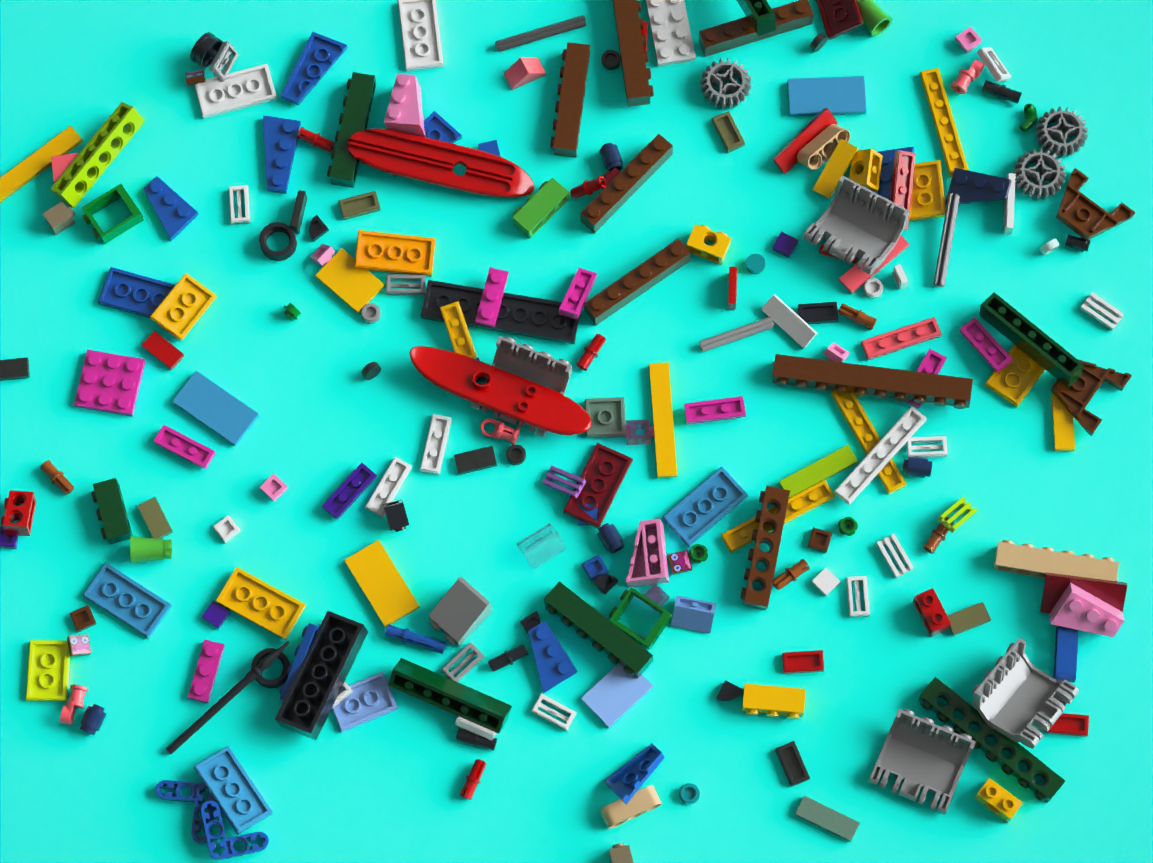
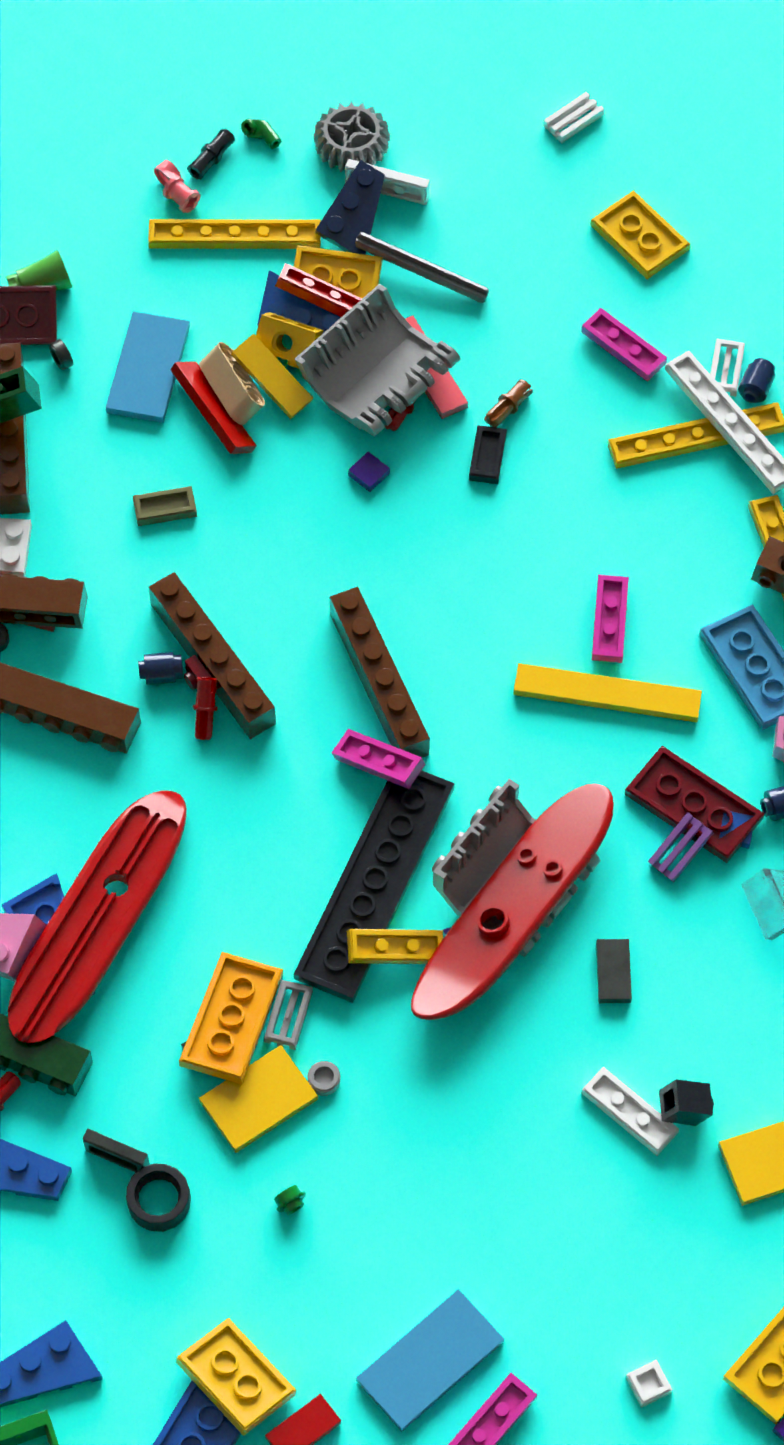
camera: 80 degrees left, 10 degrees down
(240, 219) = (67, 1262): white tile -> none
(273, 487) = (595, 1289): bright pink plate -> none
(317, 228) = (150, 1132): black tile -> none
(322, 254) = (203, 1129): bright pink plate -> none
(349, 491) = (627, 1170): dark purple plate -> none
(359, 205) = (129, 1057): olive tile -> none
(371, 370) = (426, 1094): pearl dark grey tile -> none
(436, 444) = (573, 1024): white tile -> none
(490, 147) = (88, 839): blue tile -> none
(492, 297) = (351, 883): dark pink plate -> none
(501, 431) = (575, 921): coral connector -> none
(516, 454) = (617, 910): pearl dark grey tile -> none
(540, 207) = (215, 785): bright green brick -> none
(591, 352) = (474, 766): red axle -> none
(606, 417) = (582, 764): sand green tile -> none
(632, 426) = (621, 738): brick -> none
(713, 75) = (87, 477): light grey gear -> none
(713, 252) = (349, 551): yellow brick -> none
(732, 288) = (422, 552): red tile -> none
(736, 334) = (494, 566): light grey axle -> none
(755, 263) = (388, 516): teal tile -> none
(789, 321) = (493, 490): white tile -> none
(819, 471) = (734, 507): lime tile -> none
(836, 353) = (560, 442): bright pink plate -> none
(872, 381) = (617, 405): reddish brown brick -> none
(873, 288) = (467, 376): white tile -> none
(900, 277) = (462, 336): tile -> none
(901, 338) = (553, 361): coral tile -> none
(968, 39) = (118, 173): bright pink plate -> none
(986, 345) = (594, 257): dark pink plate -> none
(993, 64) = (167, 151): white tile -> none
(1031, 340) = (605, 196): dark green brick -> none
(1047, 135) = (295, 97): light grey gear -> none
(1049, 247) = (464, 151): light aqua tile -> none
(1062, 426) = (725, 199): yellow tile -> none
(1077, 243) = (470, 114): black pin -> none
(1083, 214) = (425, 101): reddish brown wing -> none
(1083, 389) = (683, 168): reddish brown wing -> none

